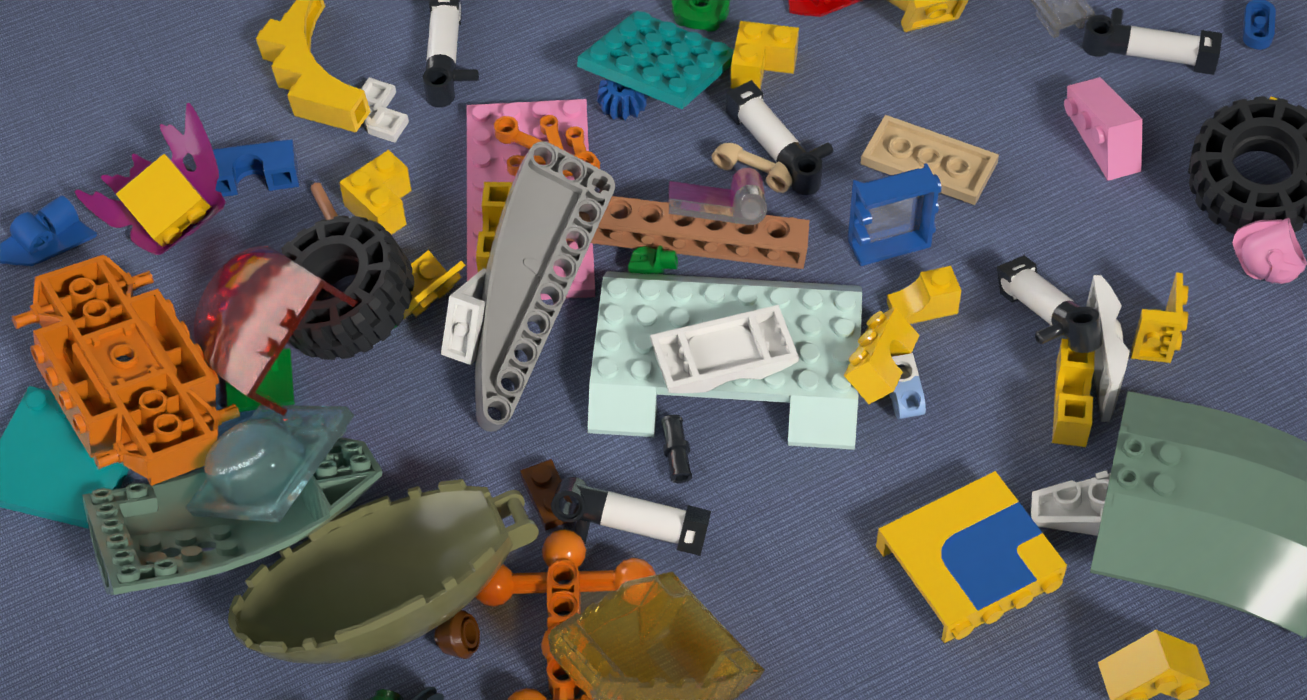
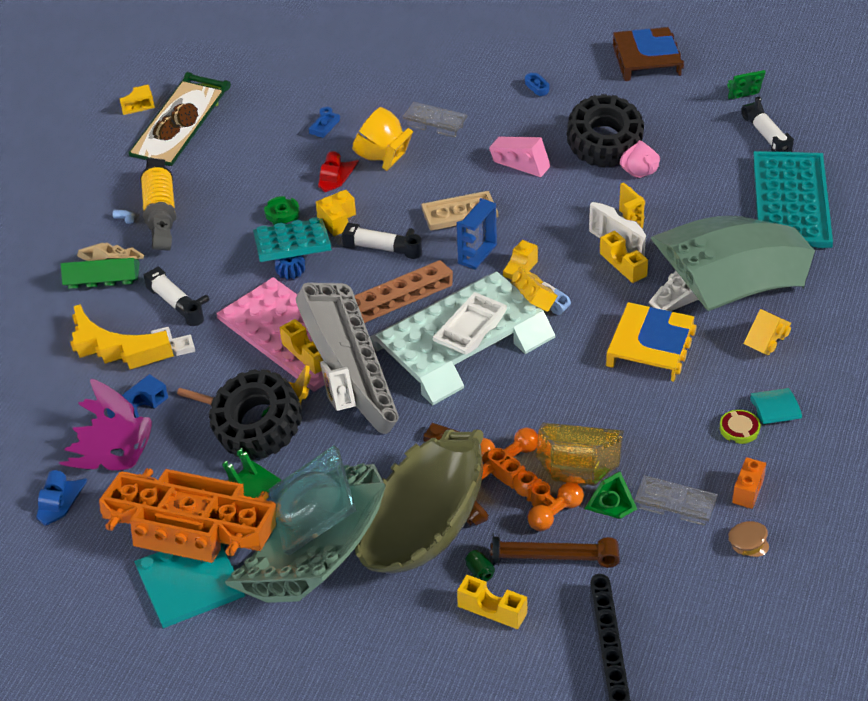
camera: 40 degrees left, 10 degrees down
(163, 201) = (115, 437): yellow brick -> none
(252, 315) = (238, 442): clear red windscreen -> none
(376, 191) = (216, 370): yellow brick -> none
(508, 131) = (285, 304): orange plant -> none
(630, 515) = (525, 406): piece -> none
(649, 260) = (385, 319): green piece -> none
(676, 449) = (482, 383): black pin -> none
(729, 153) = (368, 260): tan bar -> none
(741, 204) = (398, 268): door -> none
(1079, 324) = (595, 227): black piece -> none
(1109, 35) = (481, 121): piece -> none

